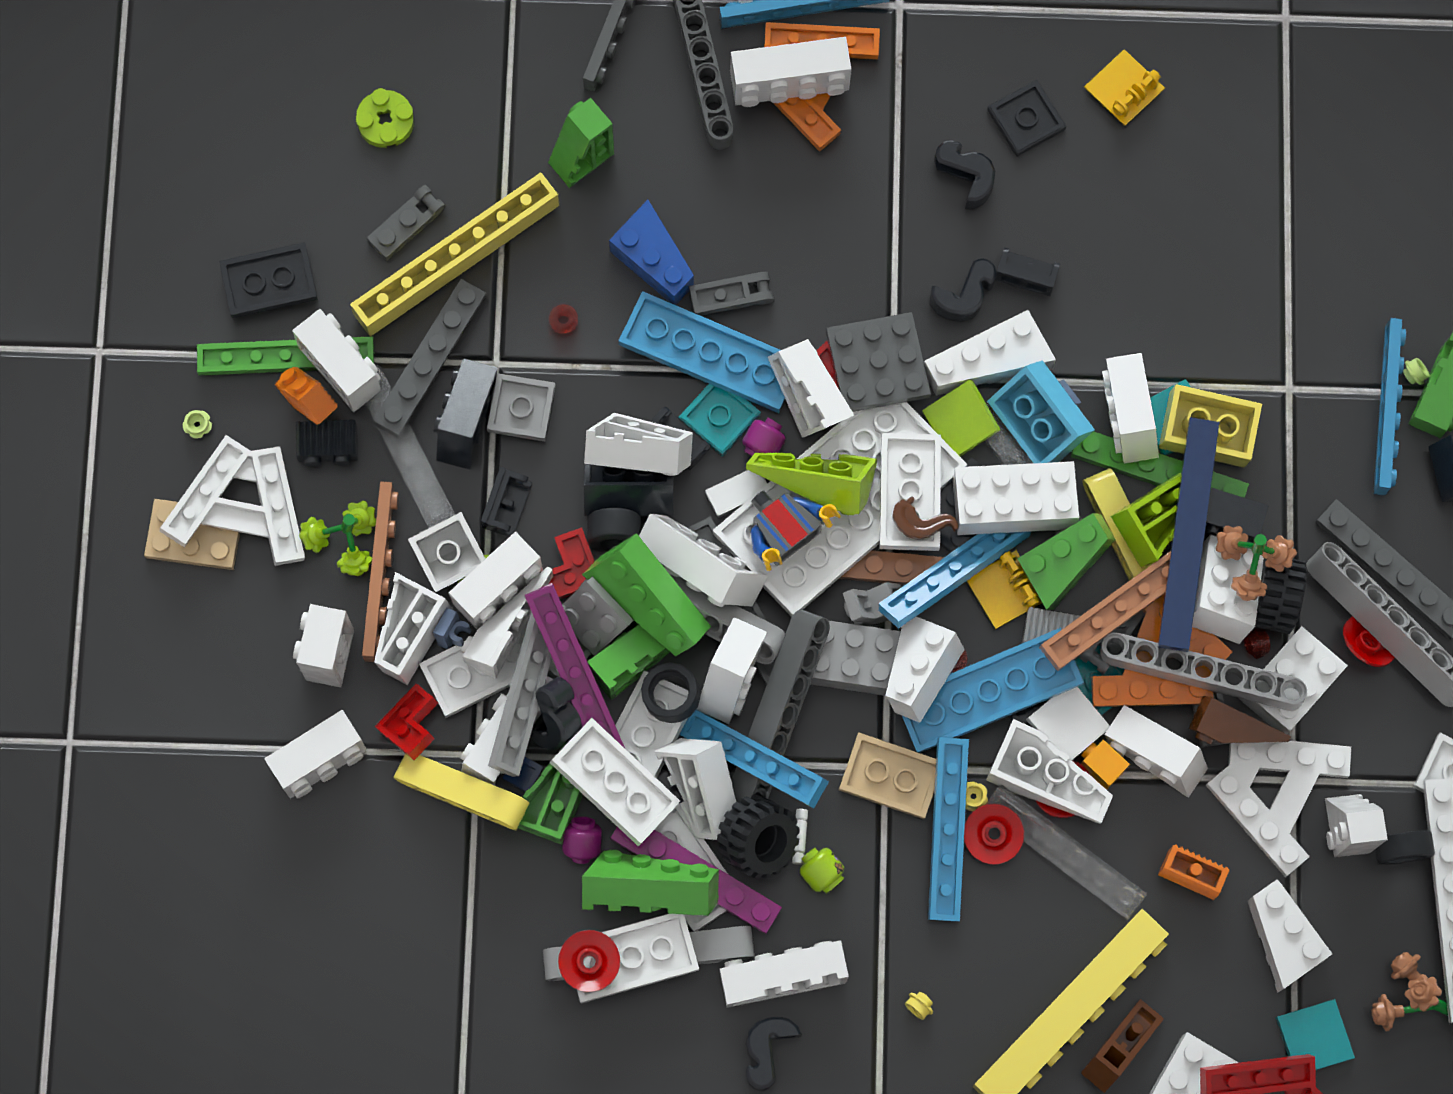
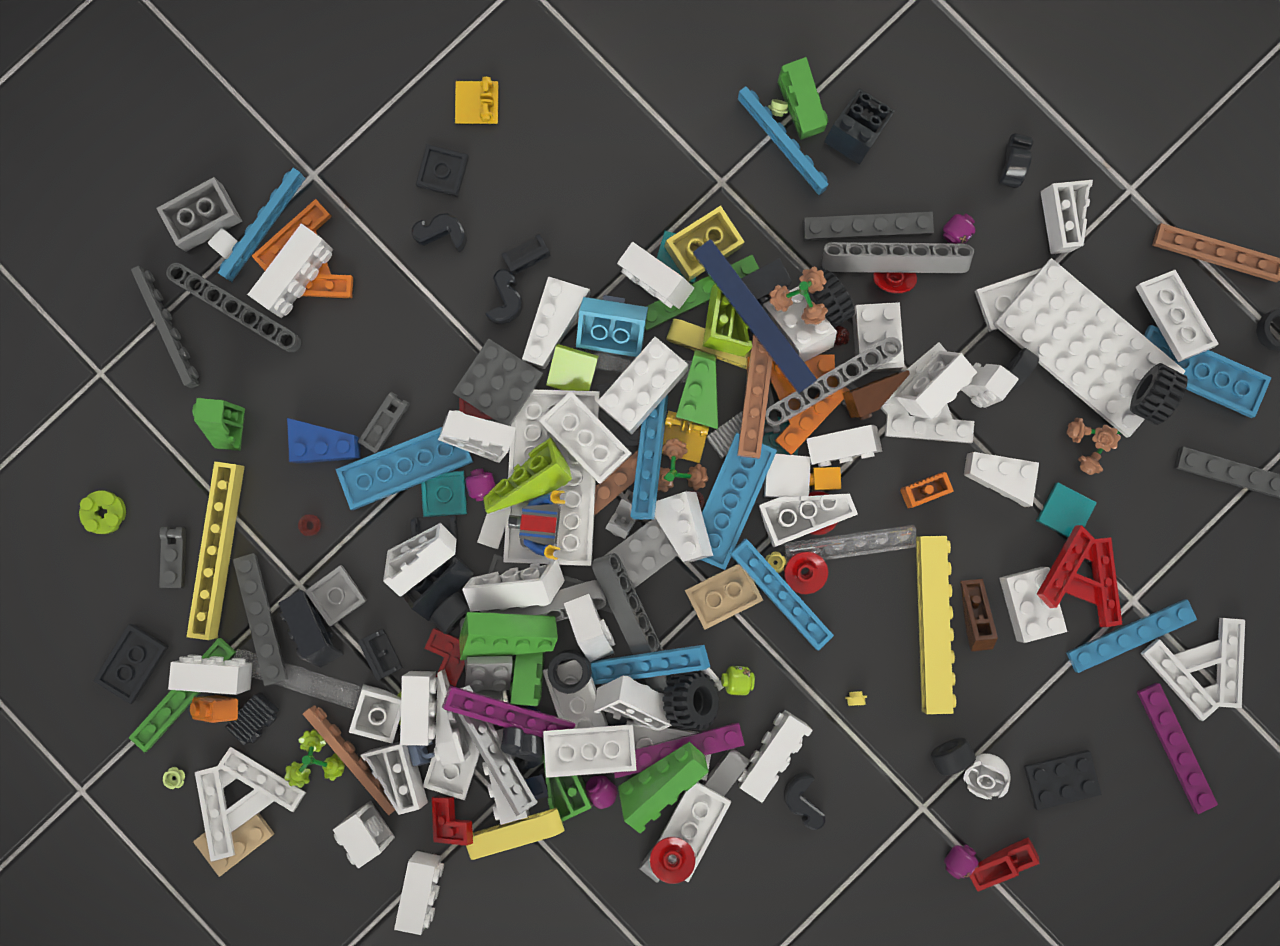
camera: 40 degrees left, 10 degrees up
(915, 528) = (607, 456): reddish brown piece -> none
(983, 589) = (696, 476): none -> nougat plant
(1304, 776) = (936, 384): none -> white brick

